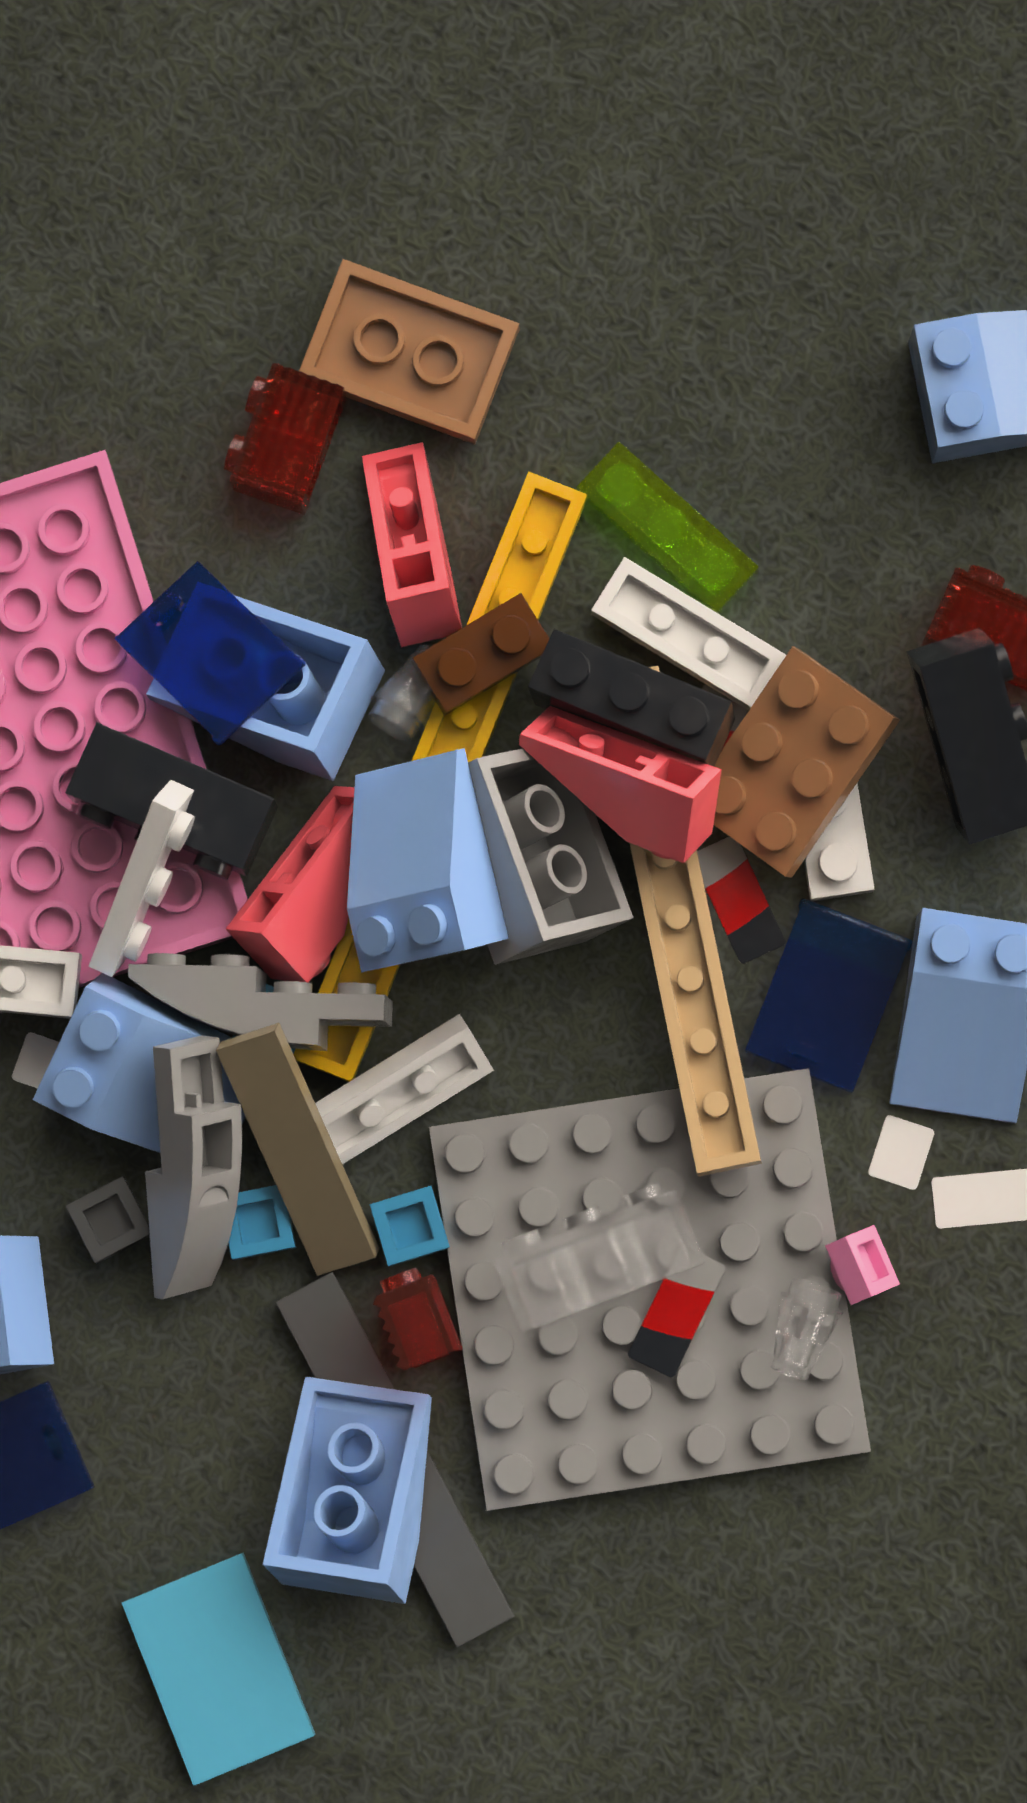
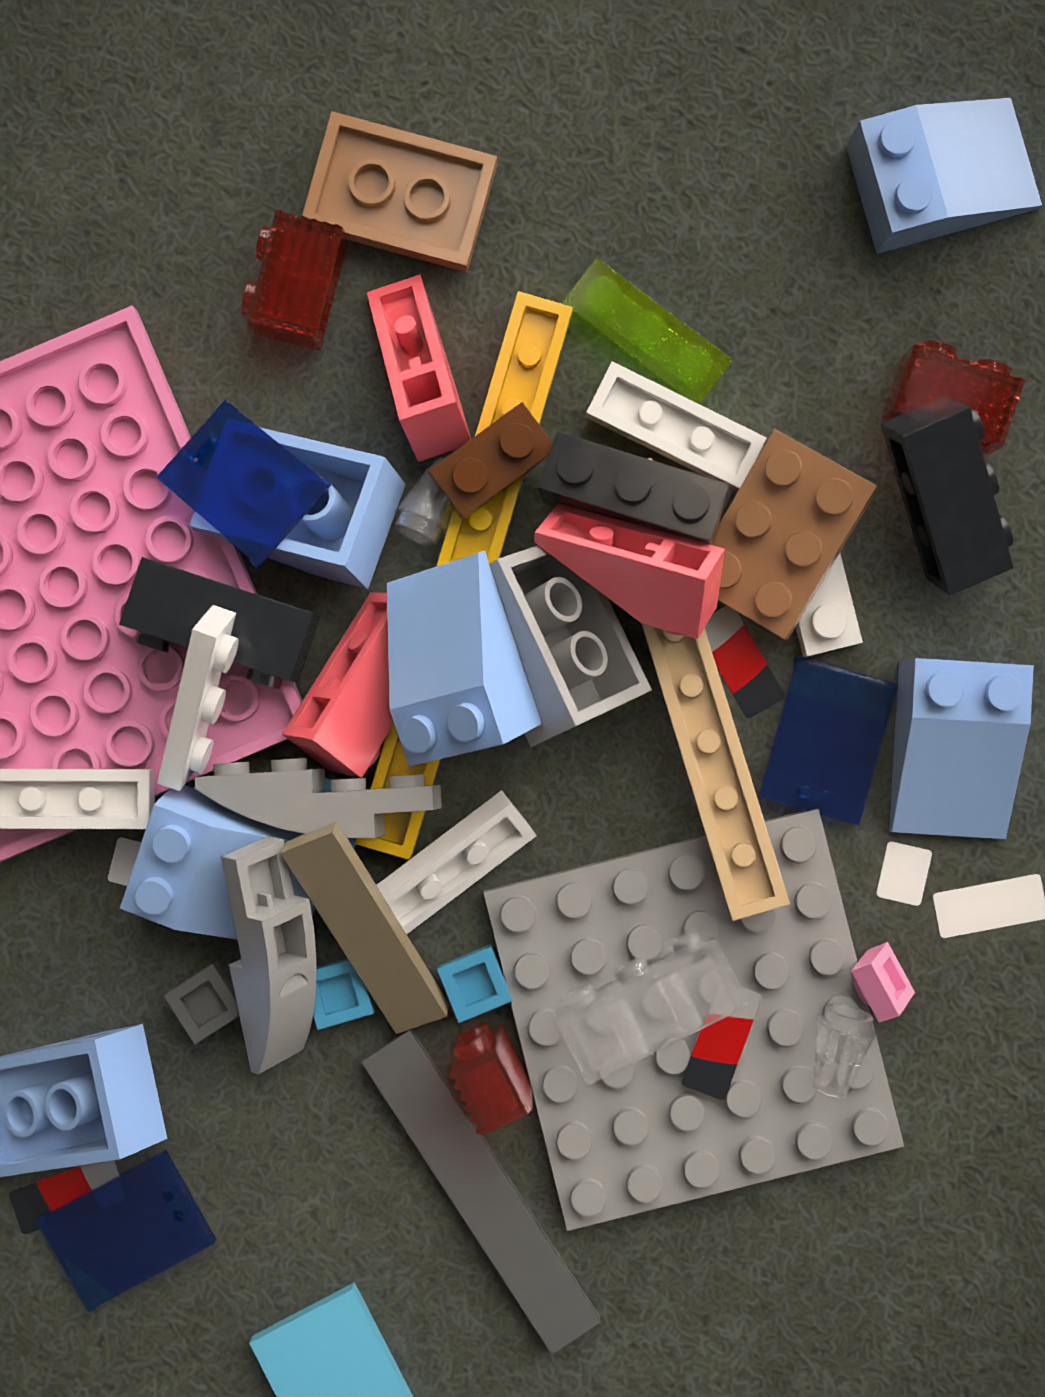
camera: 10 degrees left, 5 degrees up
(351, 1491) = (445, 1233): light blue slope -> none

